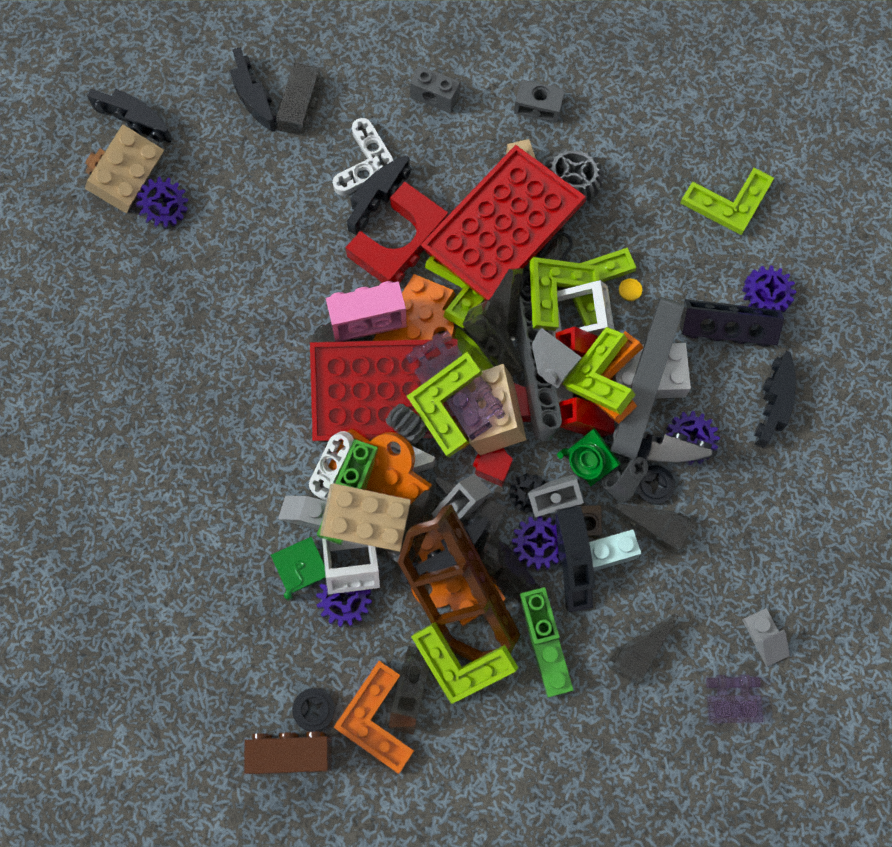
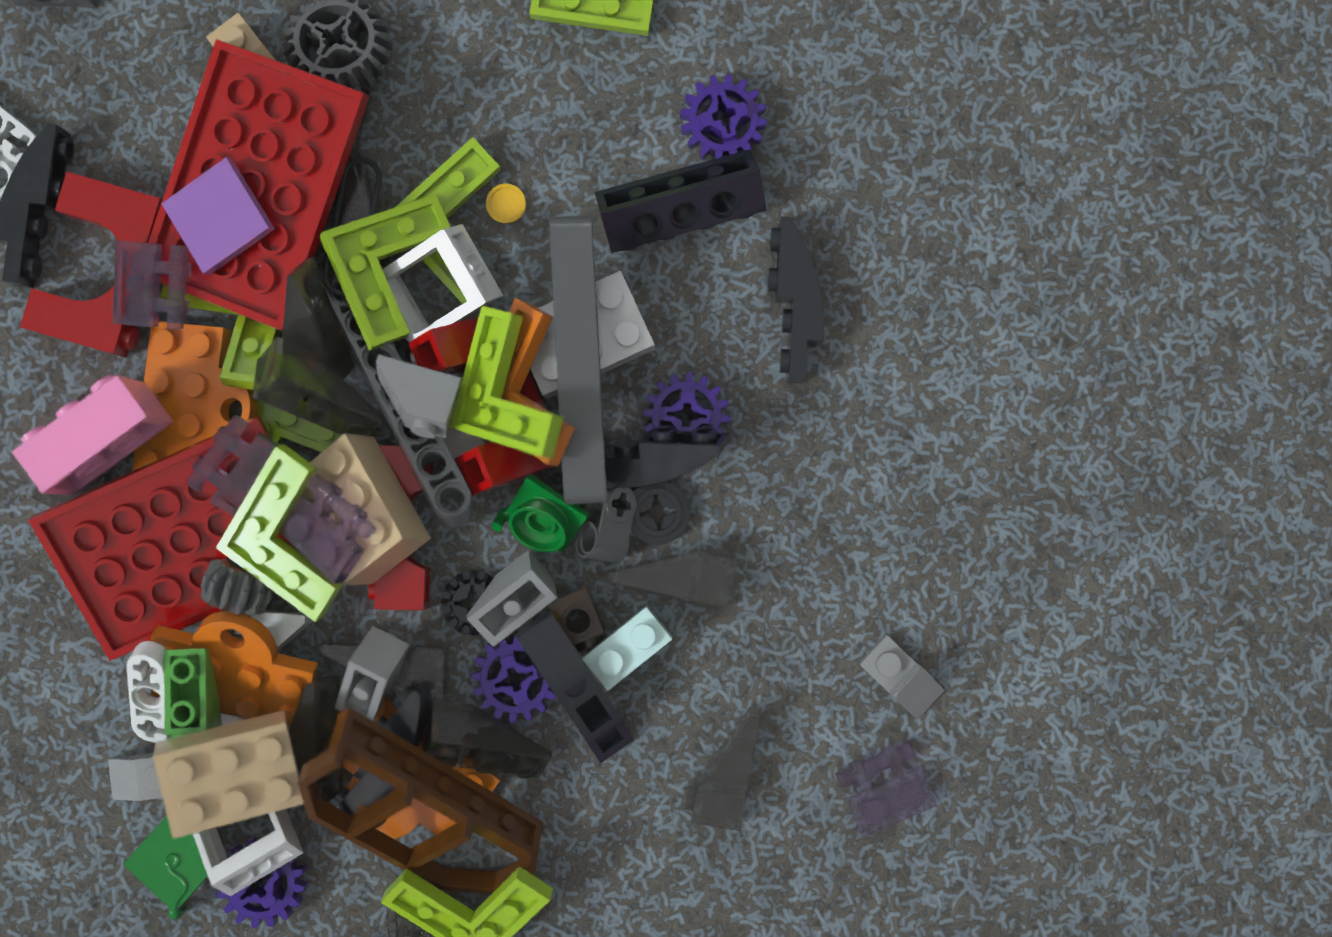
camera: 20 degrees left, 15 degrees up
(420, 248) = (138, 284): none -> clear purple plate
(479, 230) = (217, 216): none -> medium lavender tile
(545, 642) = (582, 824): bright green slope -> none

